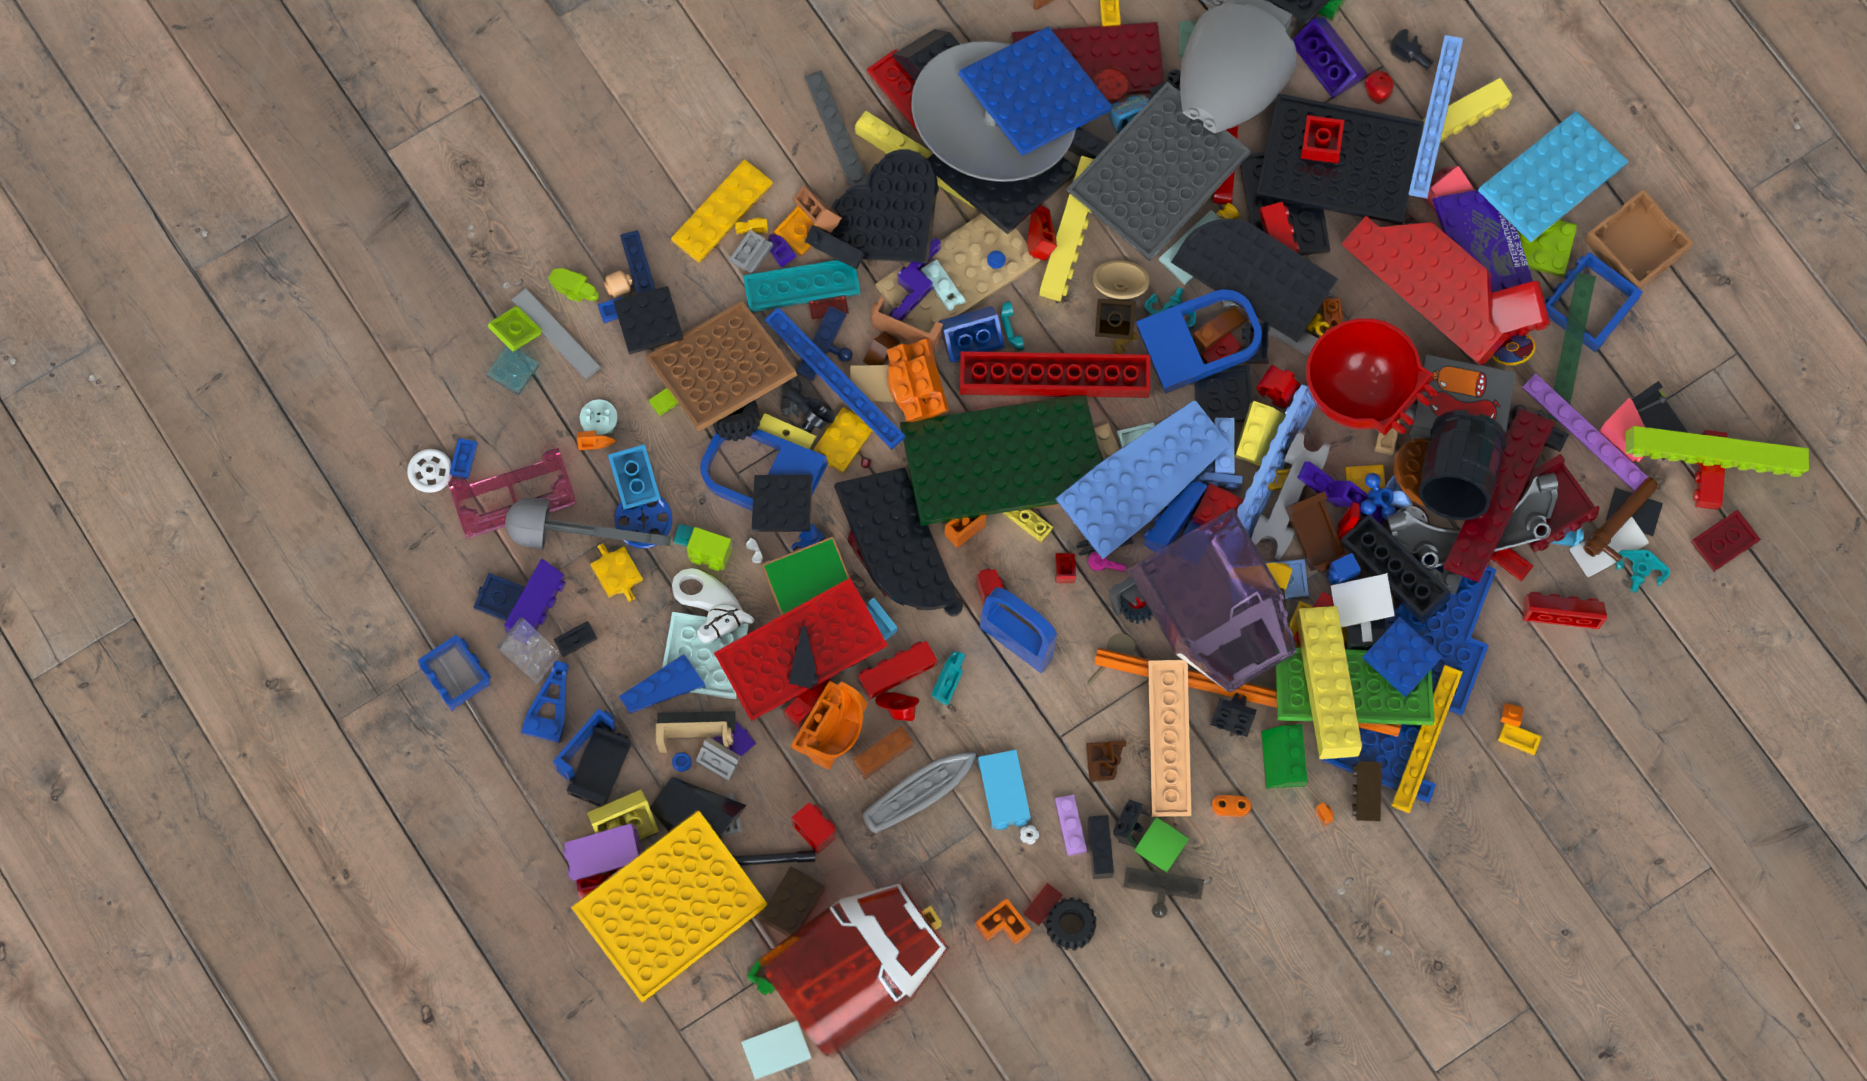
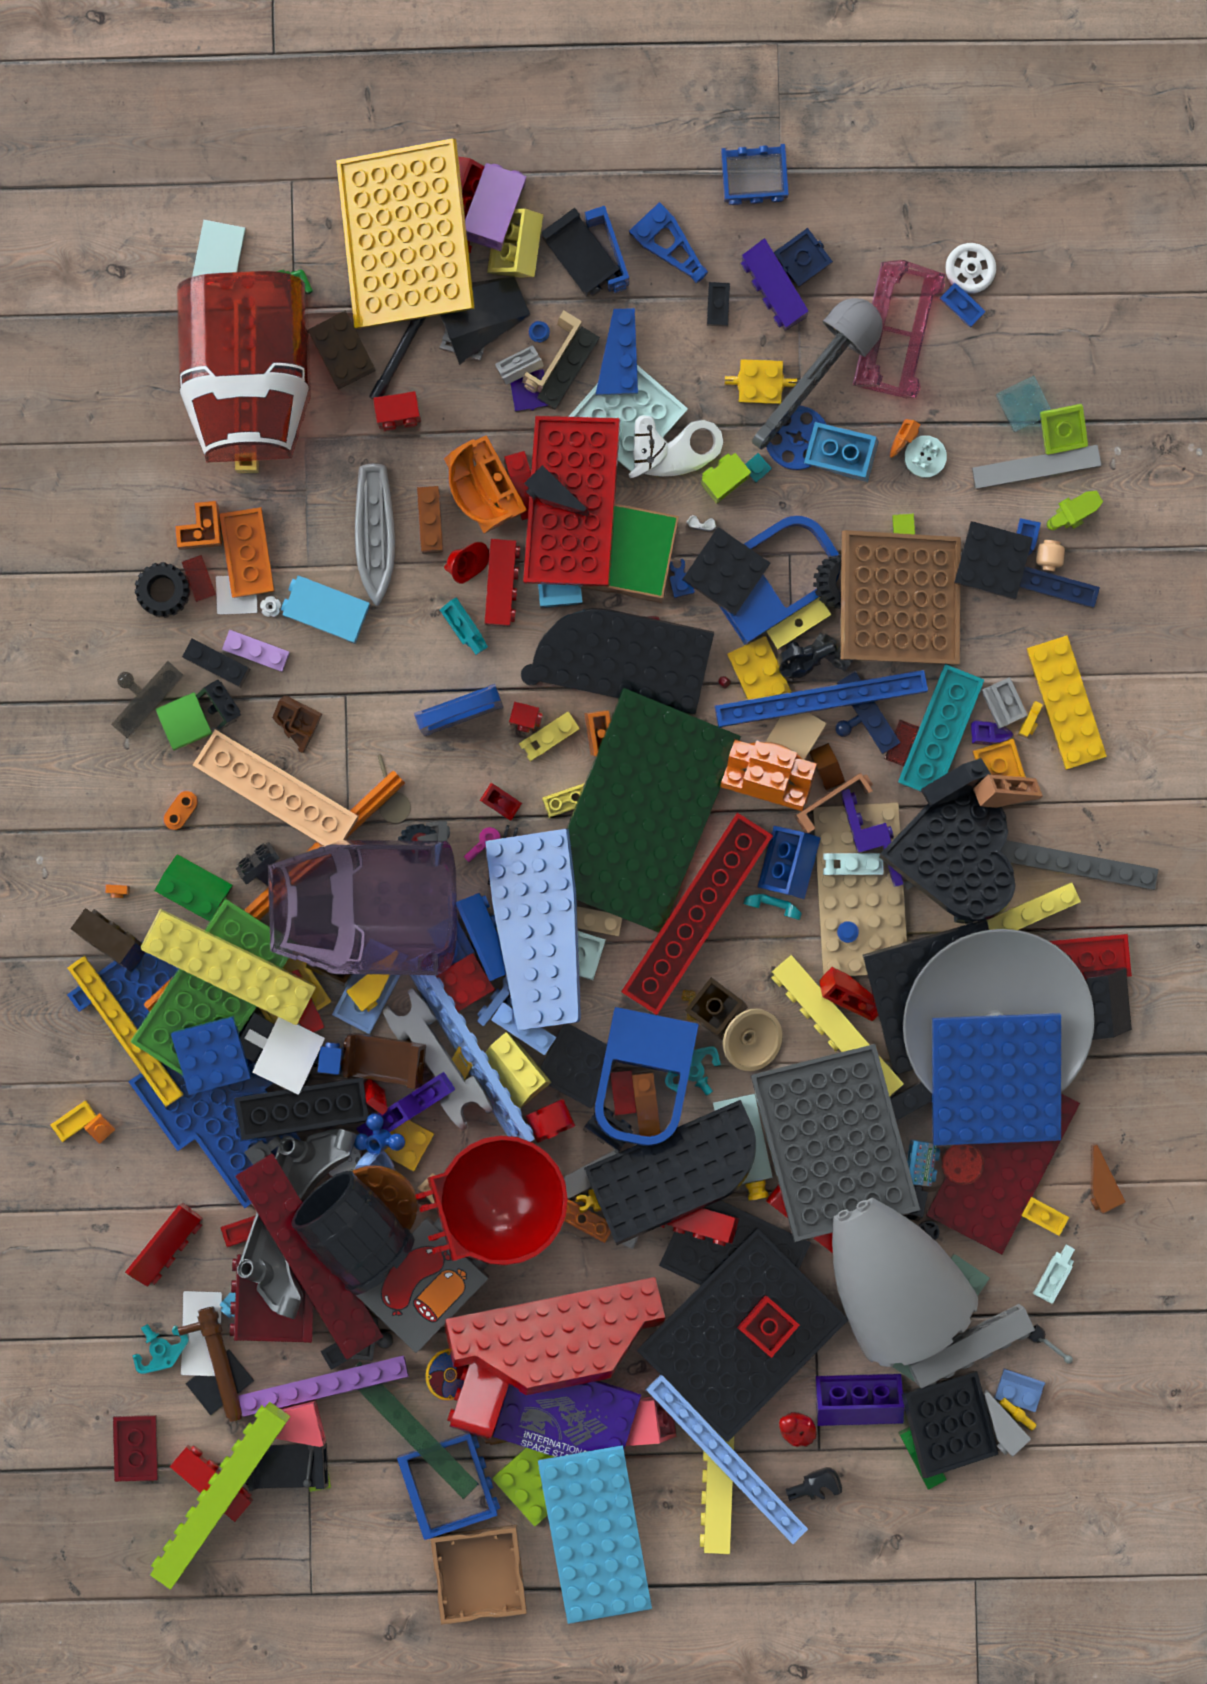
camera: 125 degrees right, 15 degrees up
(528, 650) = (729, 250): clear plate -> none
(982, 560) = (550, 736): none -> light yellow plate
(999, 878) = (246, 552): none -> orange plate
(1036, 868) = (230, 605): none -> white sticker

